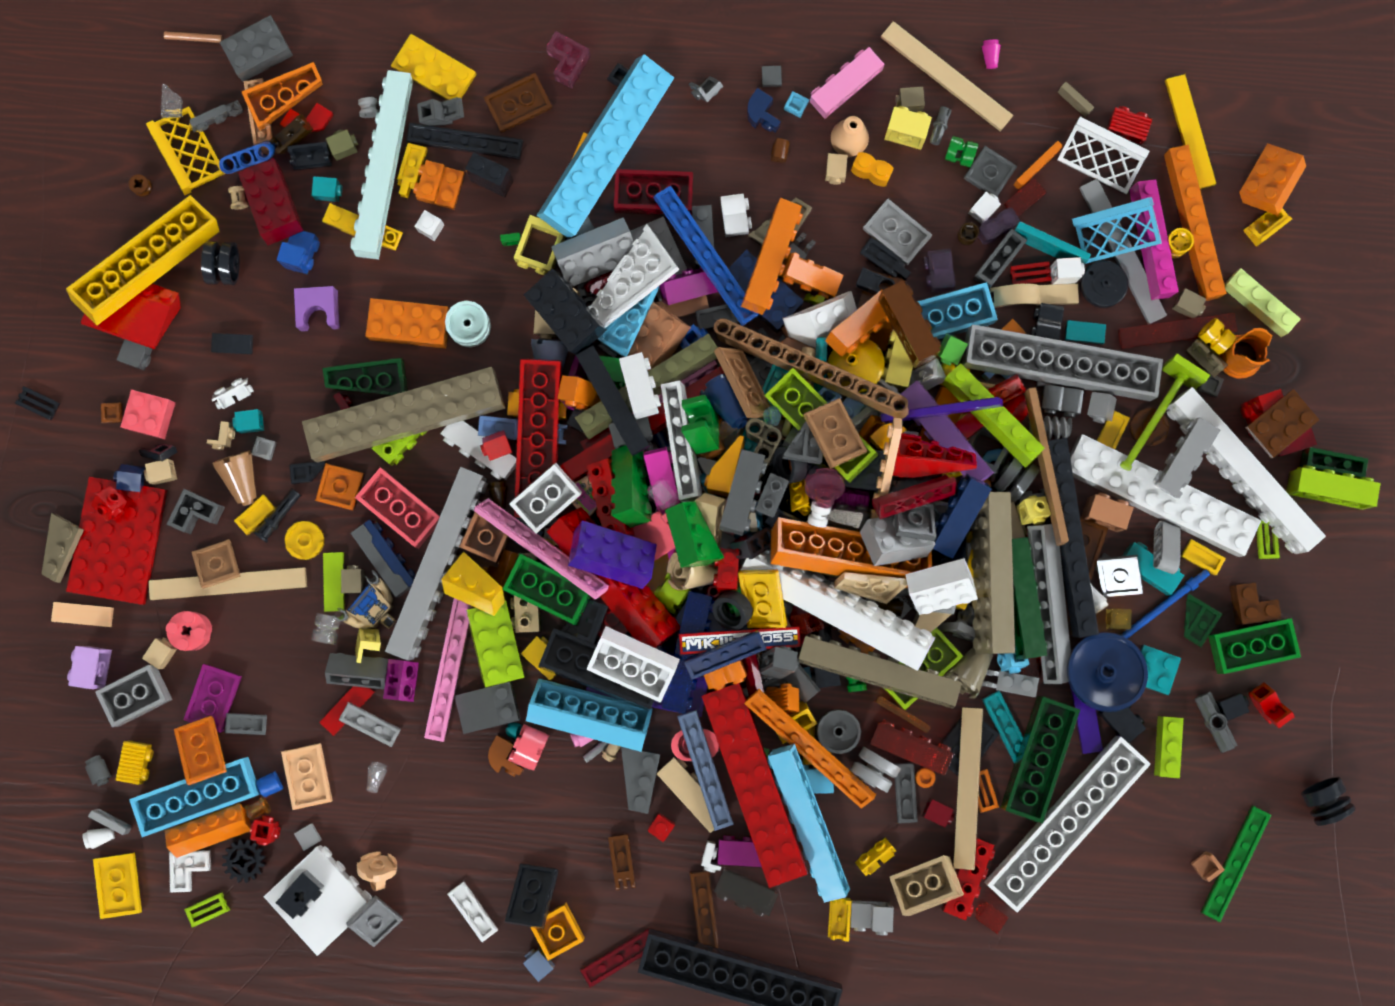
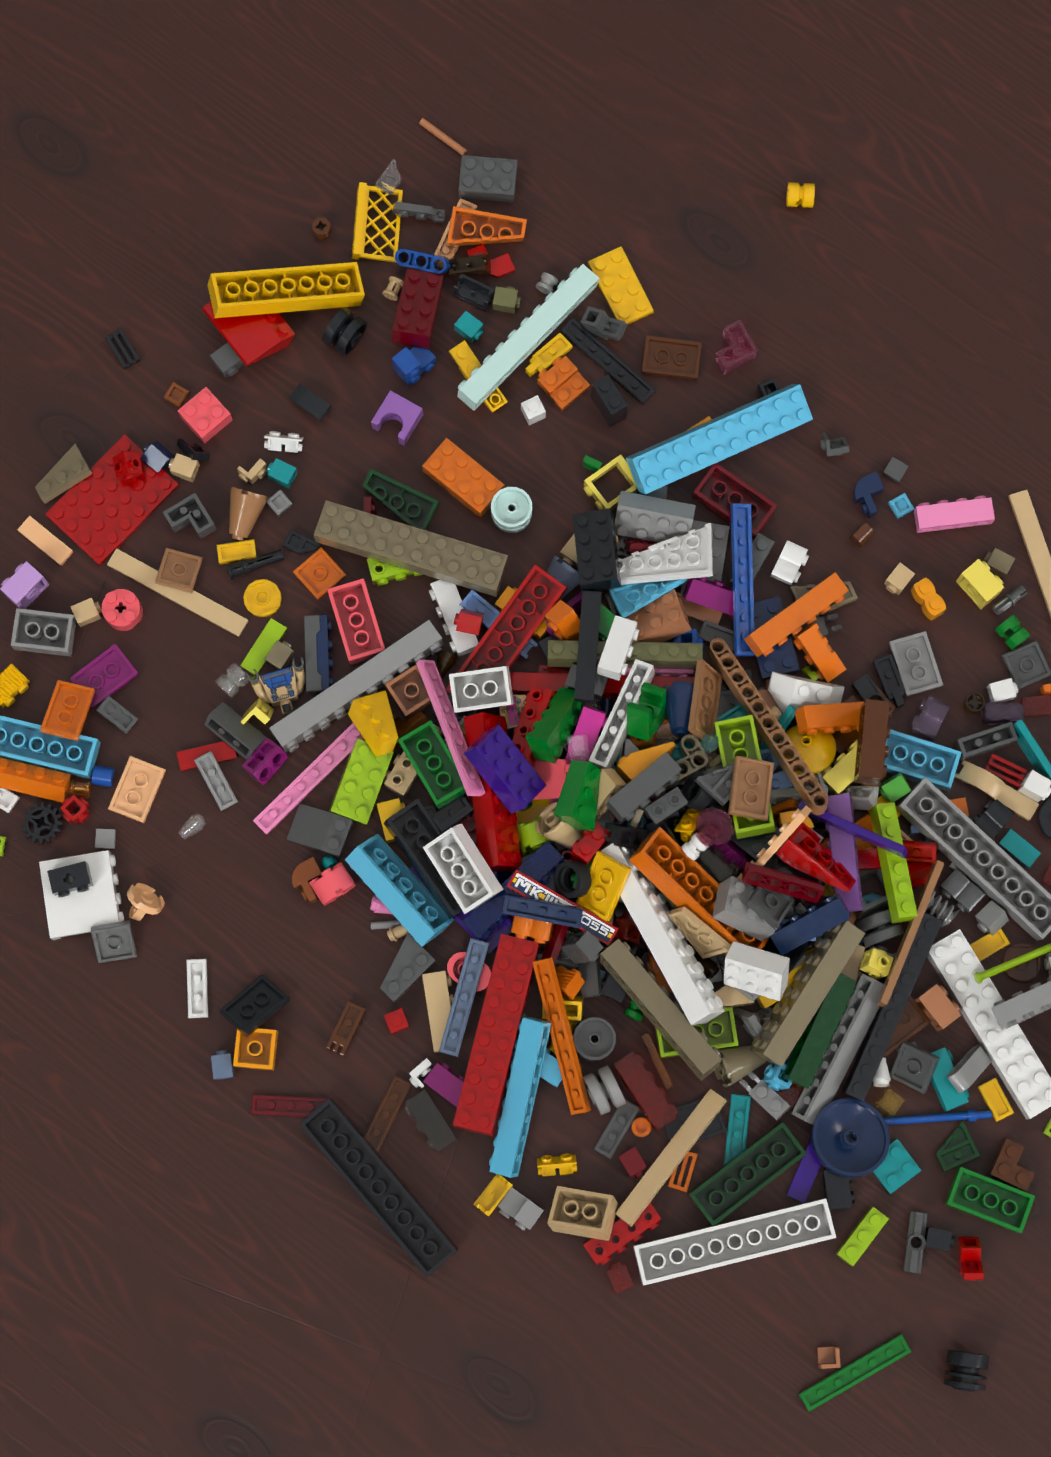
camera: 30 degrees right, 5 degrees down
(849, 136) = (927, 561): light nougat cone -> none

